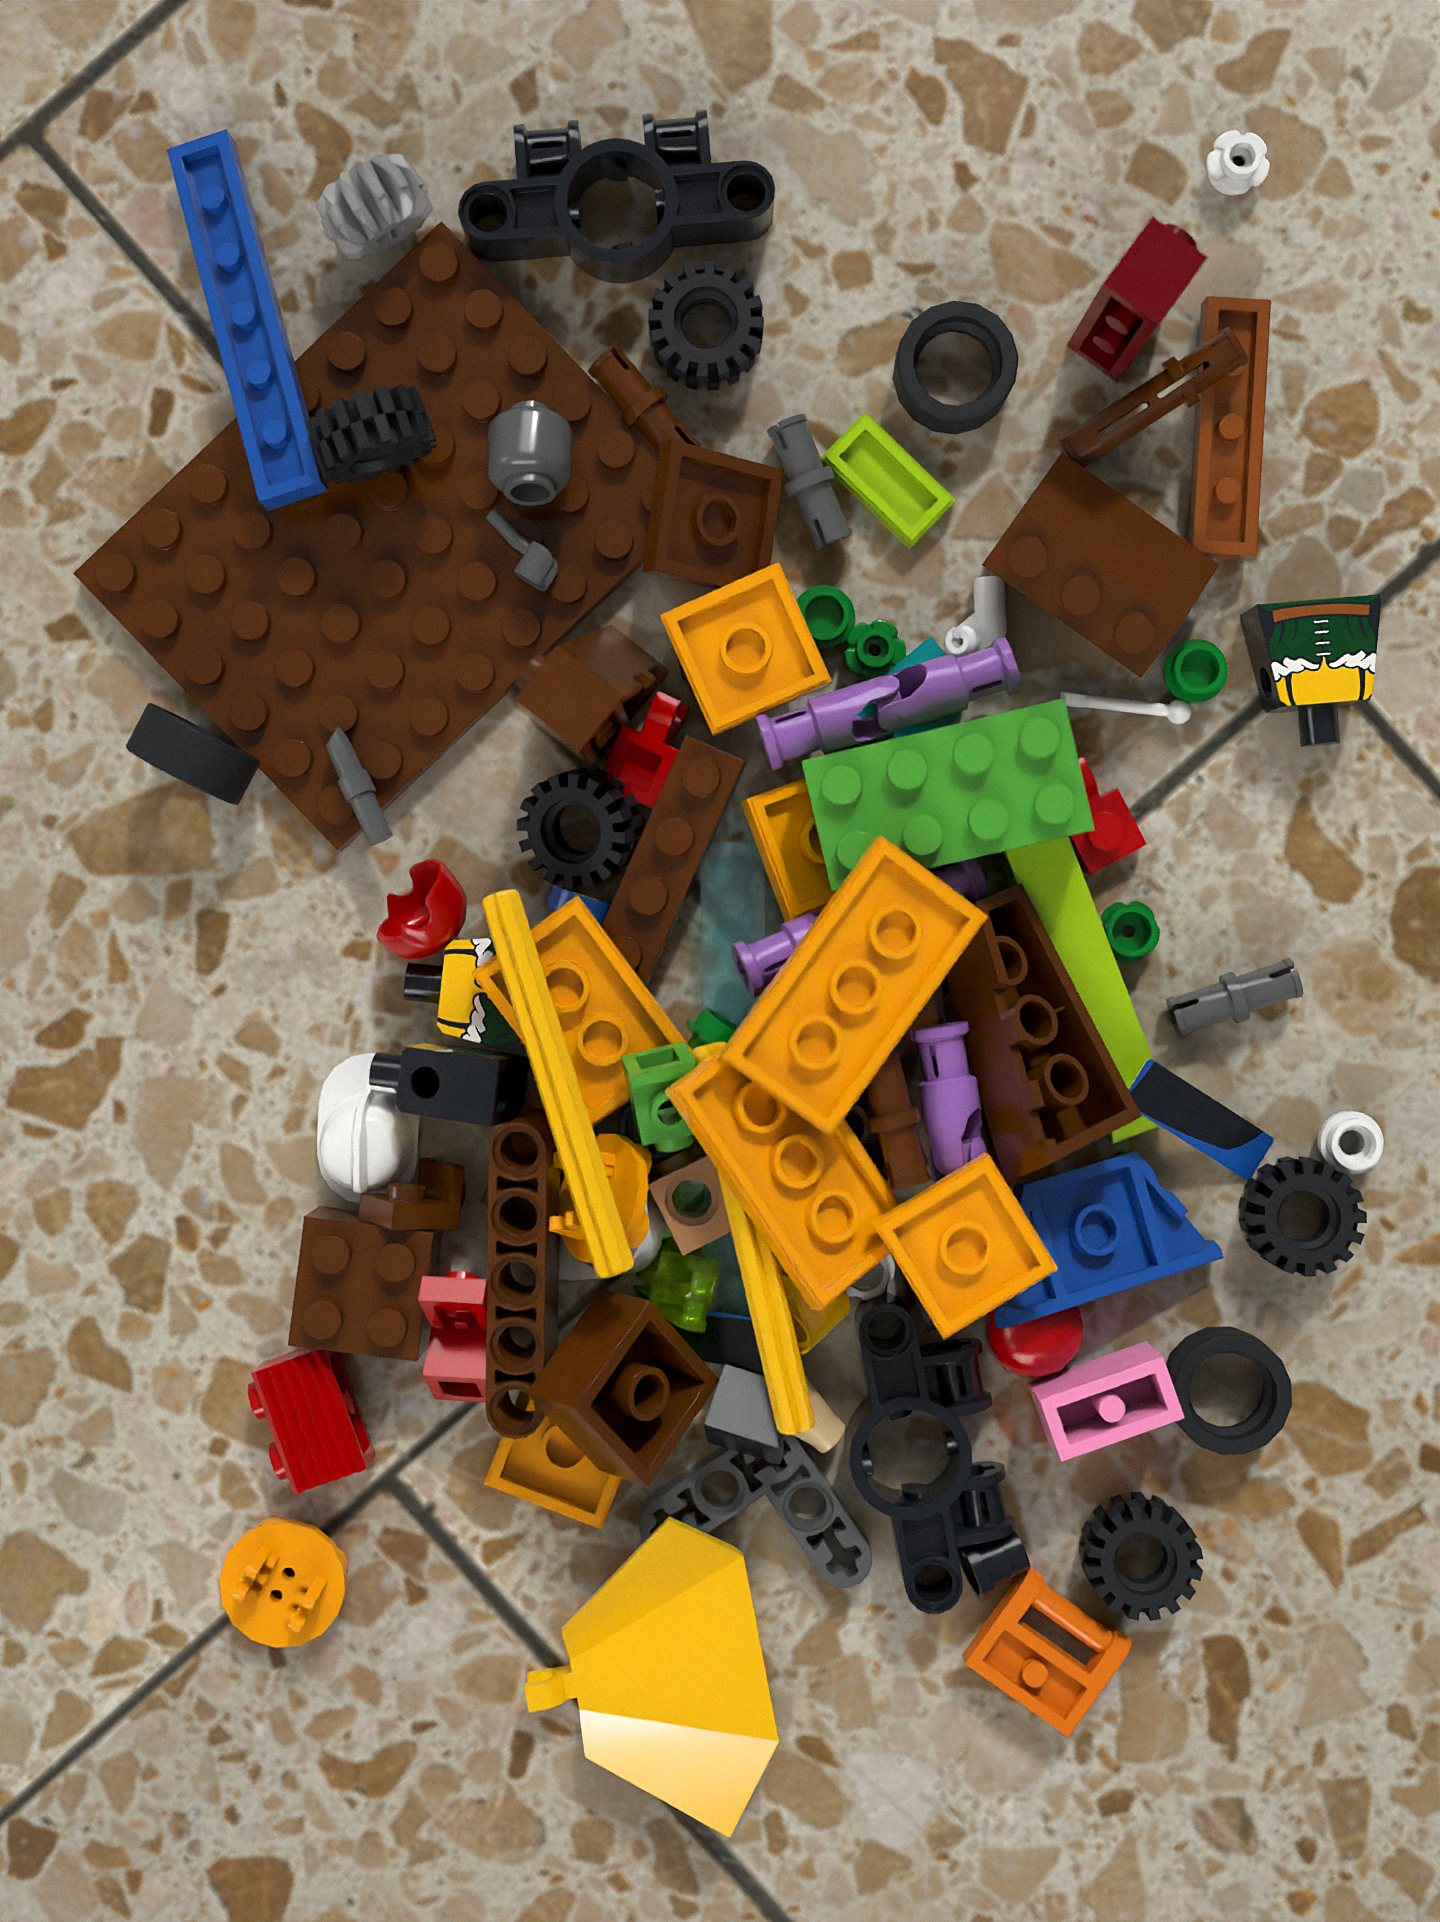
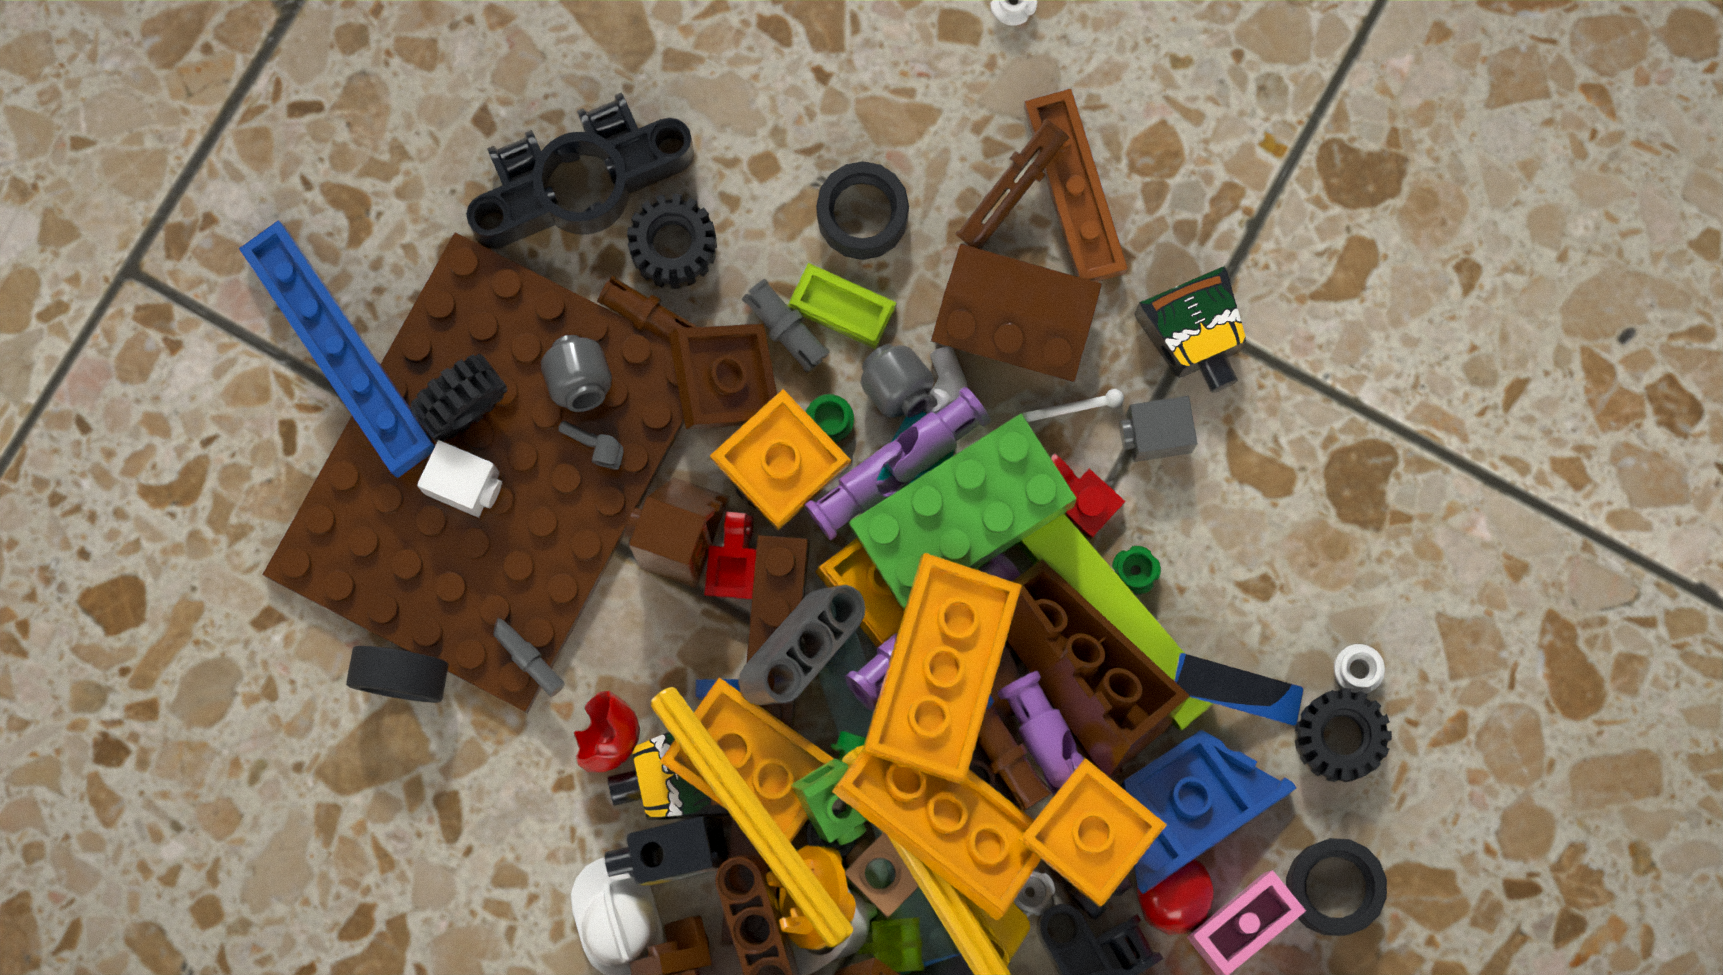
camera: 20 degrees left, 10 degrees down
(343, 538) = (460, 479): none -> white brick
(374, 206) = (405, 238): light grey gear -> none
(545, 834) = (676, 644): black tyre -> none
(664, 891) = (782, 651): none -> dark grey beam
(862, 637) = (862, 426): green plate -> none
(922, 599) = (896, 381): none -> dark grey head
(1136, 297) = (972, 122): dark red brick -> none
(1195, 671) = (1115, 365): green plate -> none
(1221, 769) = (1159, 429): none -> dark grey brick
(1234, 997) = (1231, 591): dark grey pin -> none

